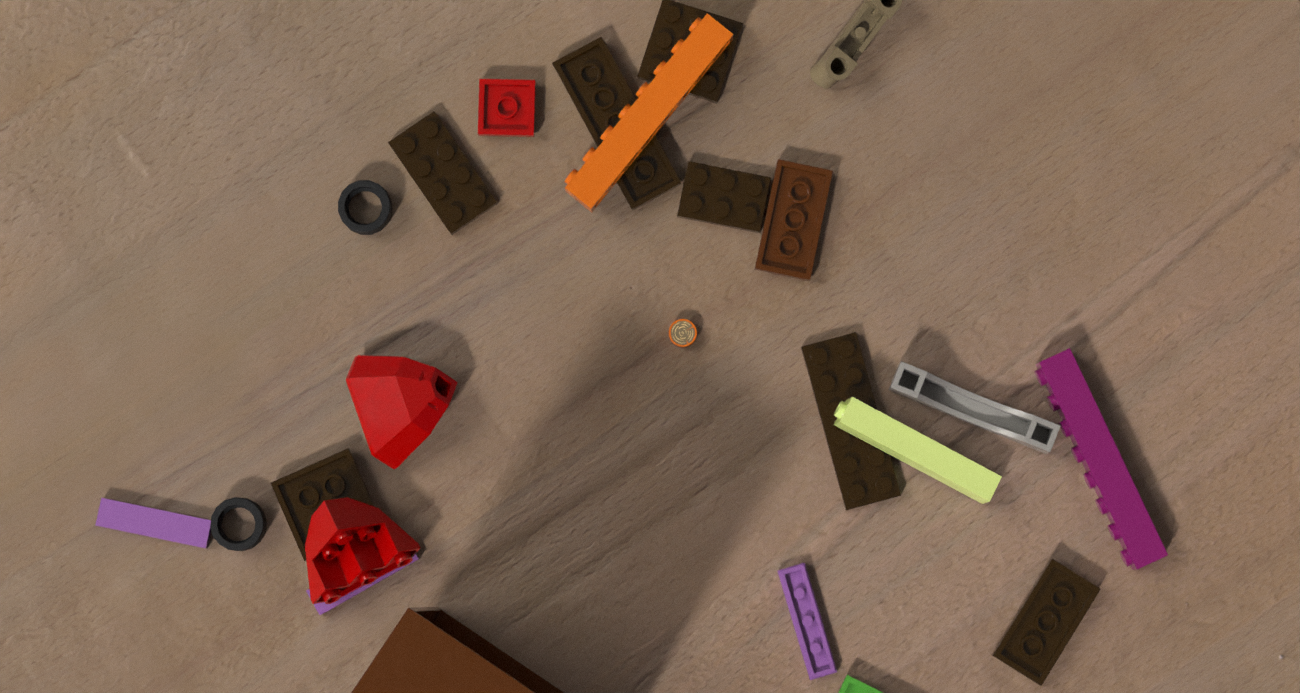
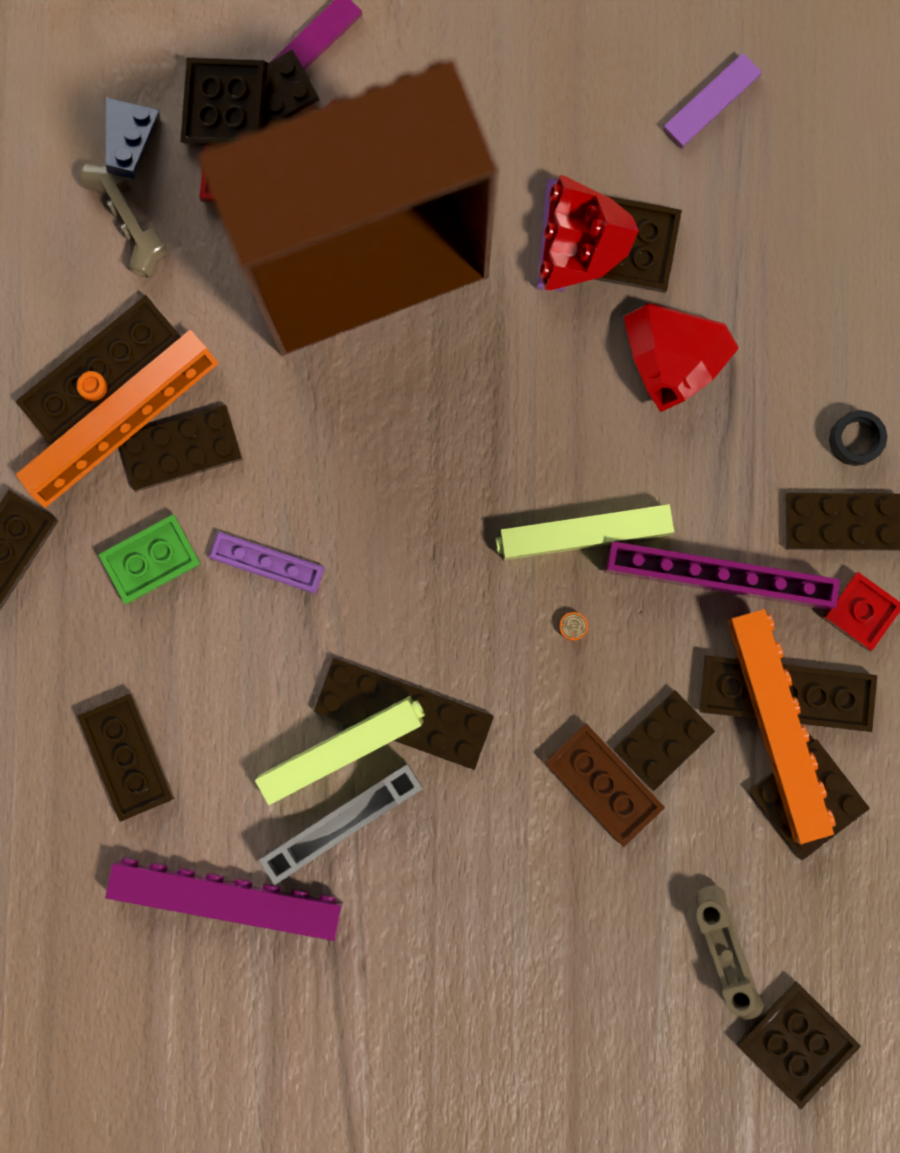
camera: 120 degrees right, 0 degrees up
(227, 505) = (665, 143): black tyre -> none
(559, 241) = (722, 575): none -> magenta brick
(599, 376) = (585, 532): none -> yellowish green brick

